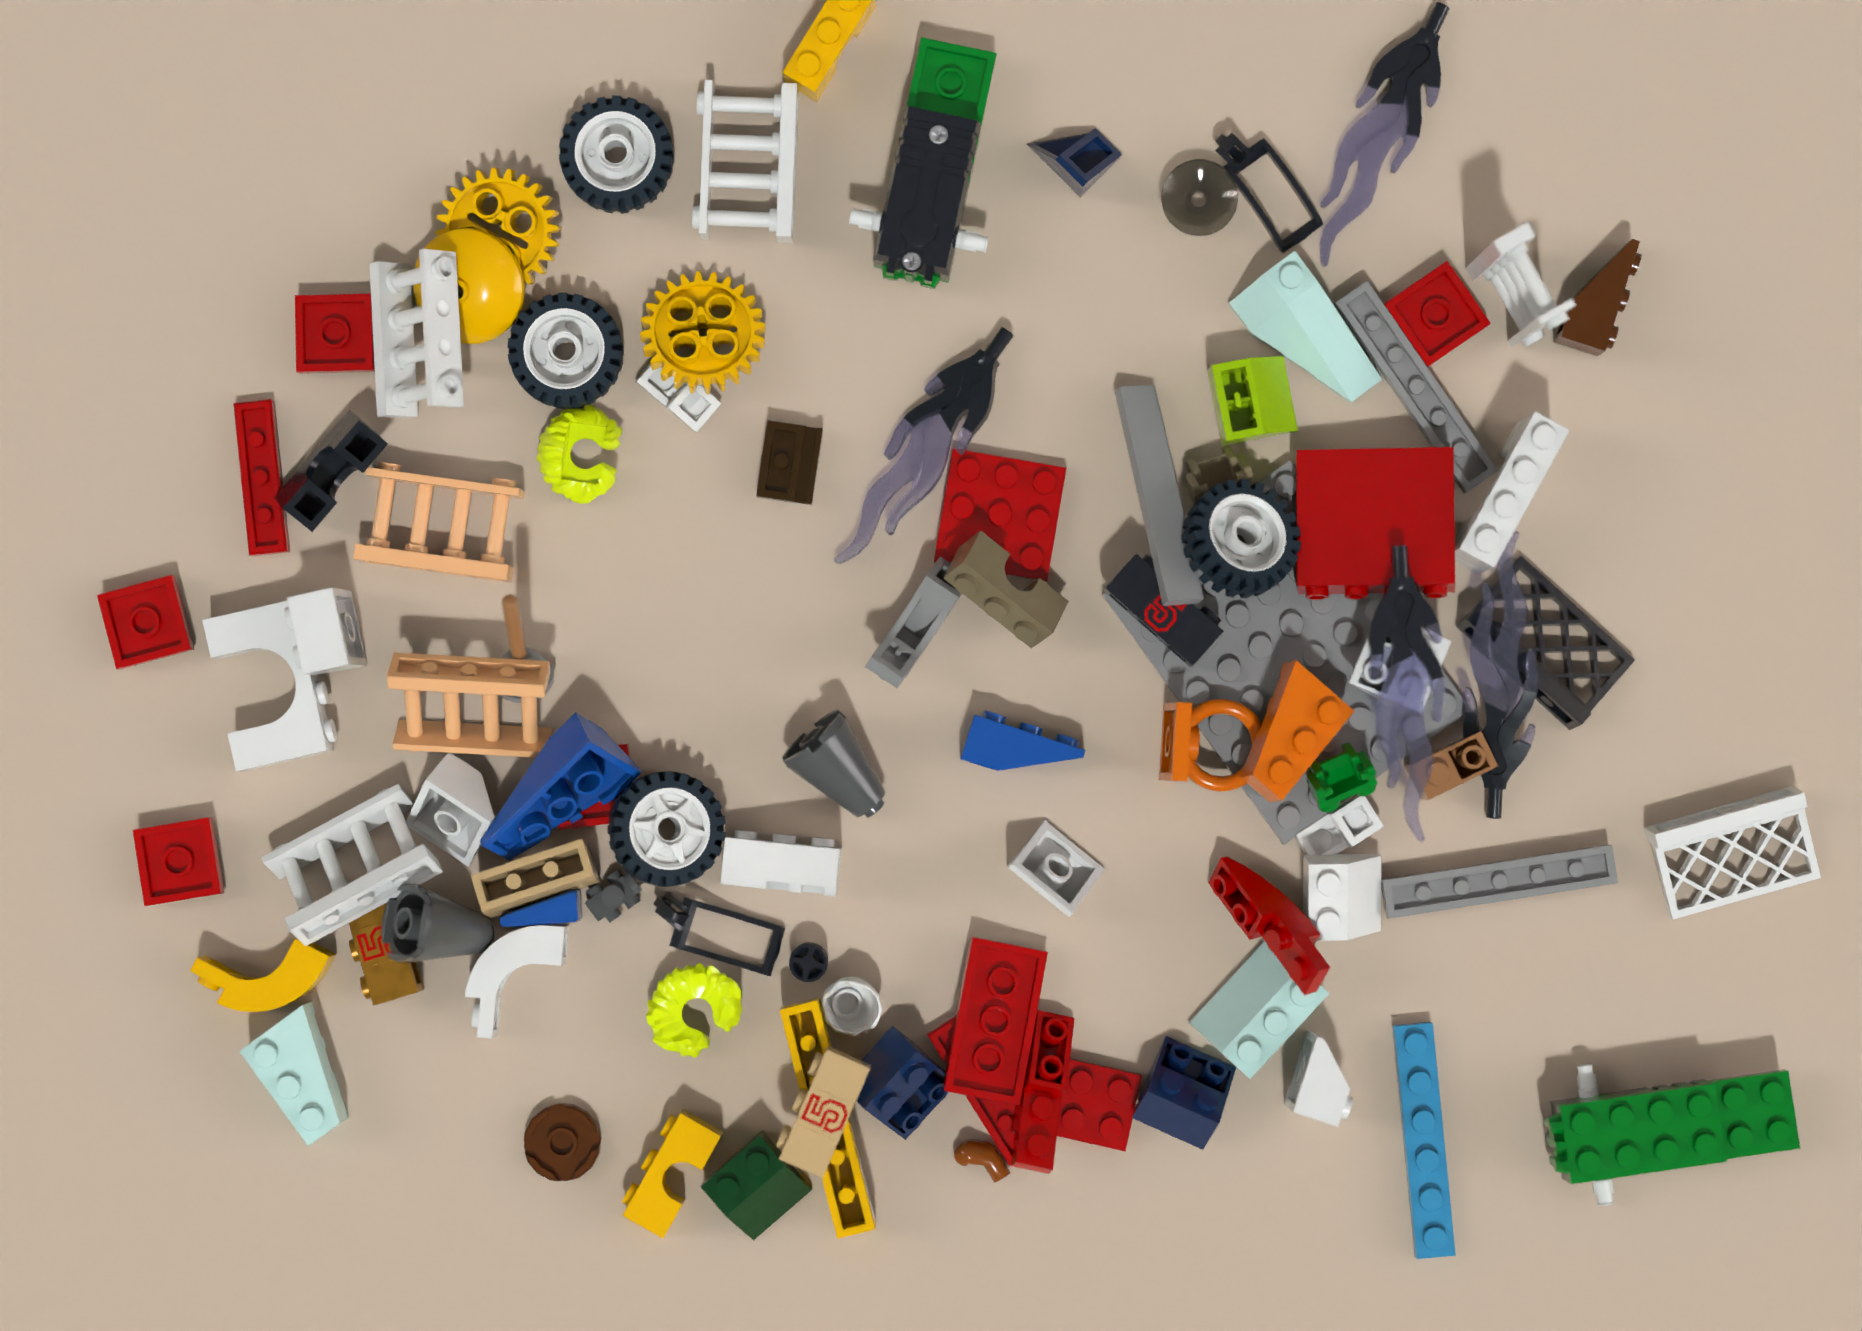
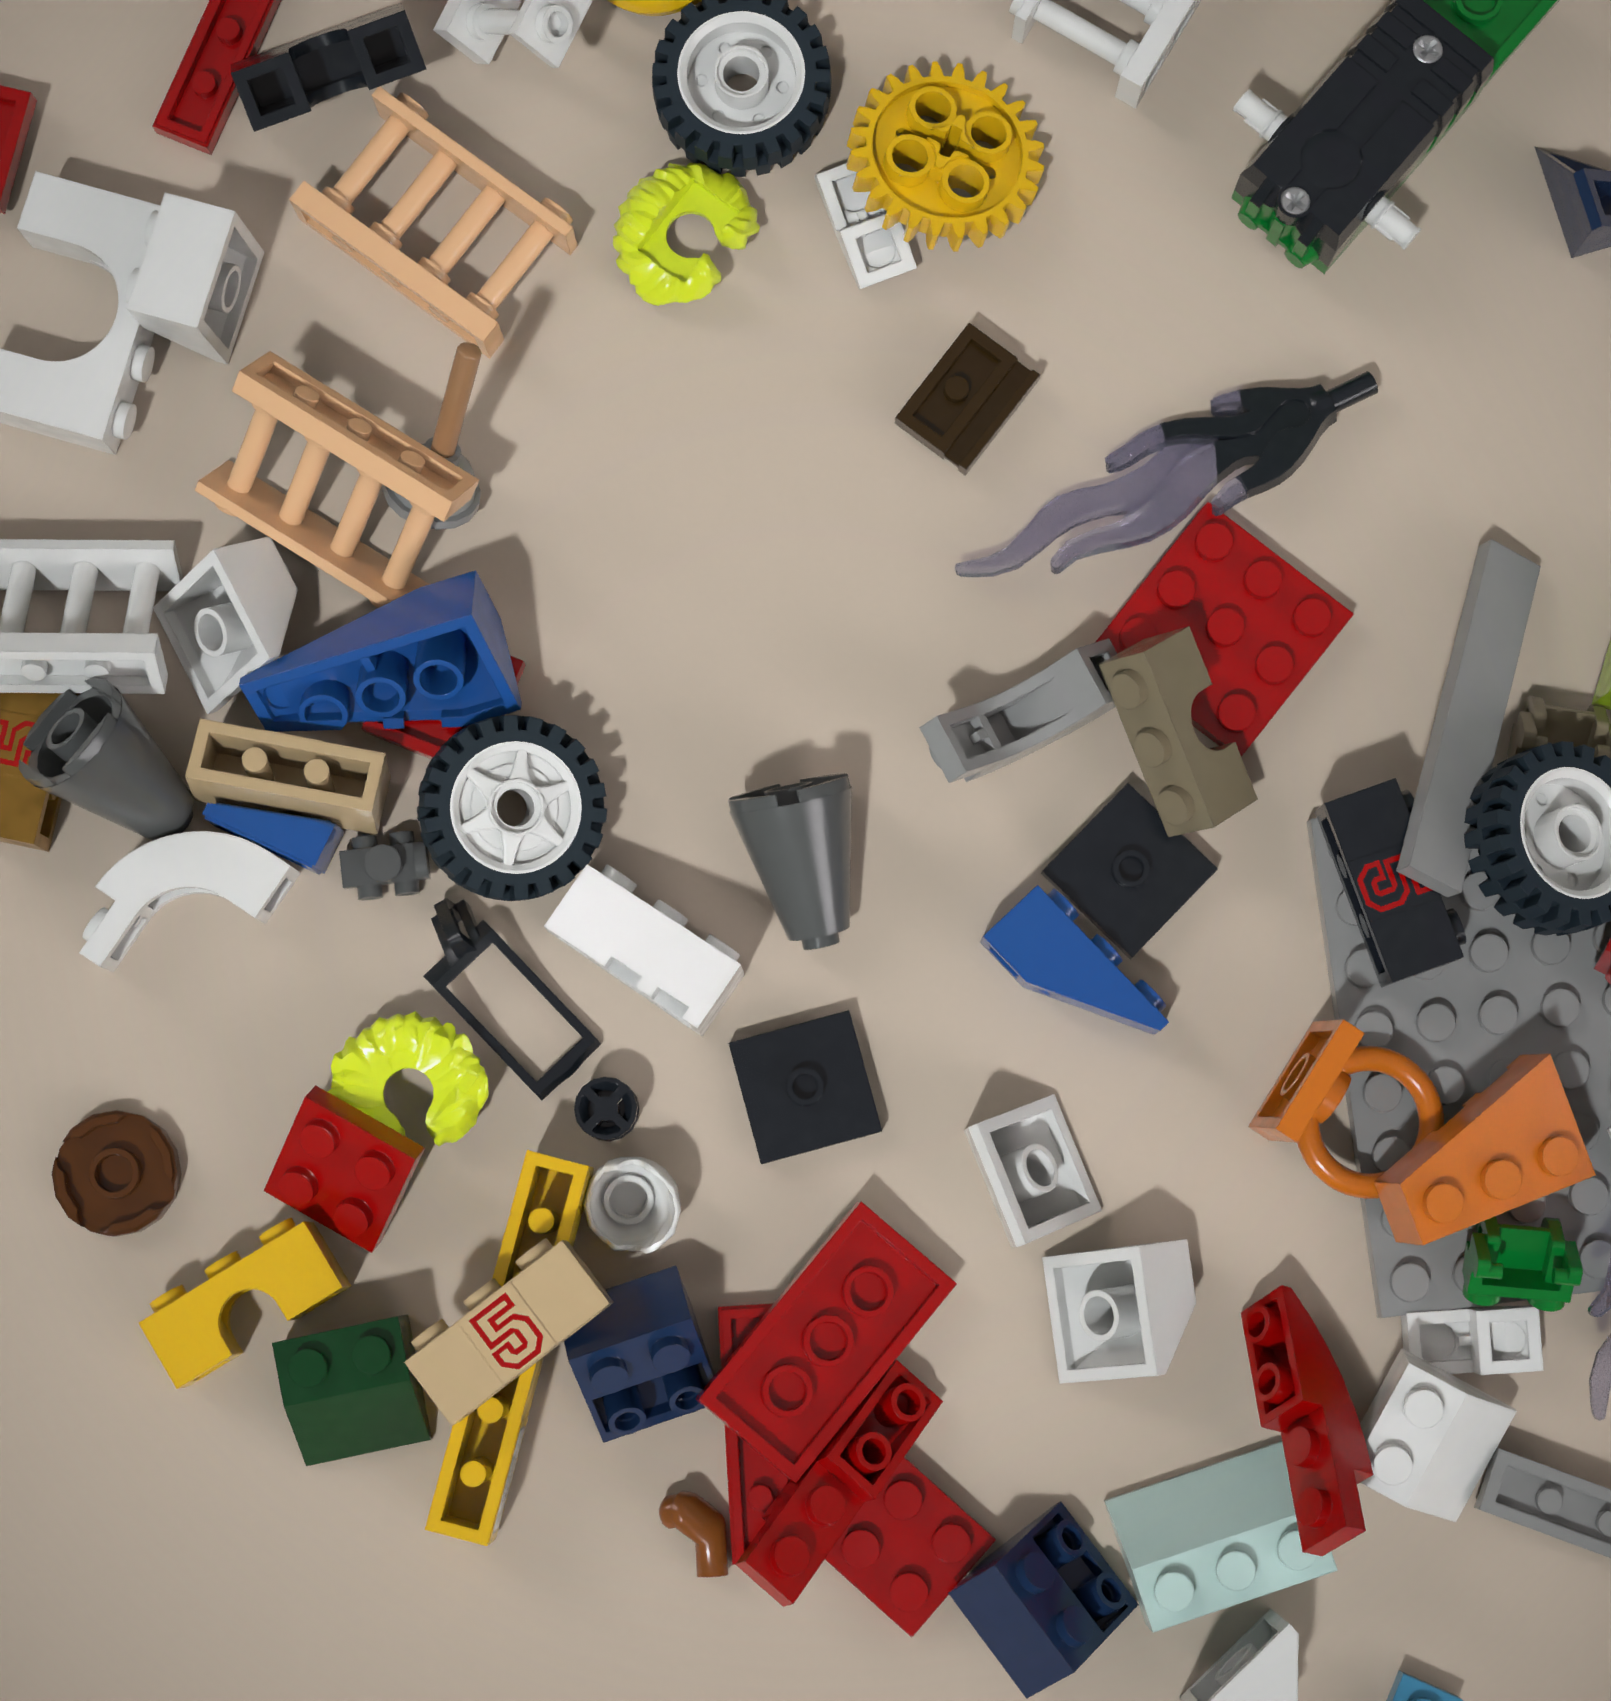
camera: 30 degrees right, 5 degrees down
(685, 1073) = (343, 1168): none -> red plate
(908, 891) = (805, 1087): none -> black plate
(1019, 677) = (1128, 871): none -> black plate
(1141, 917) = (1119, 1309): none -> white slope

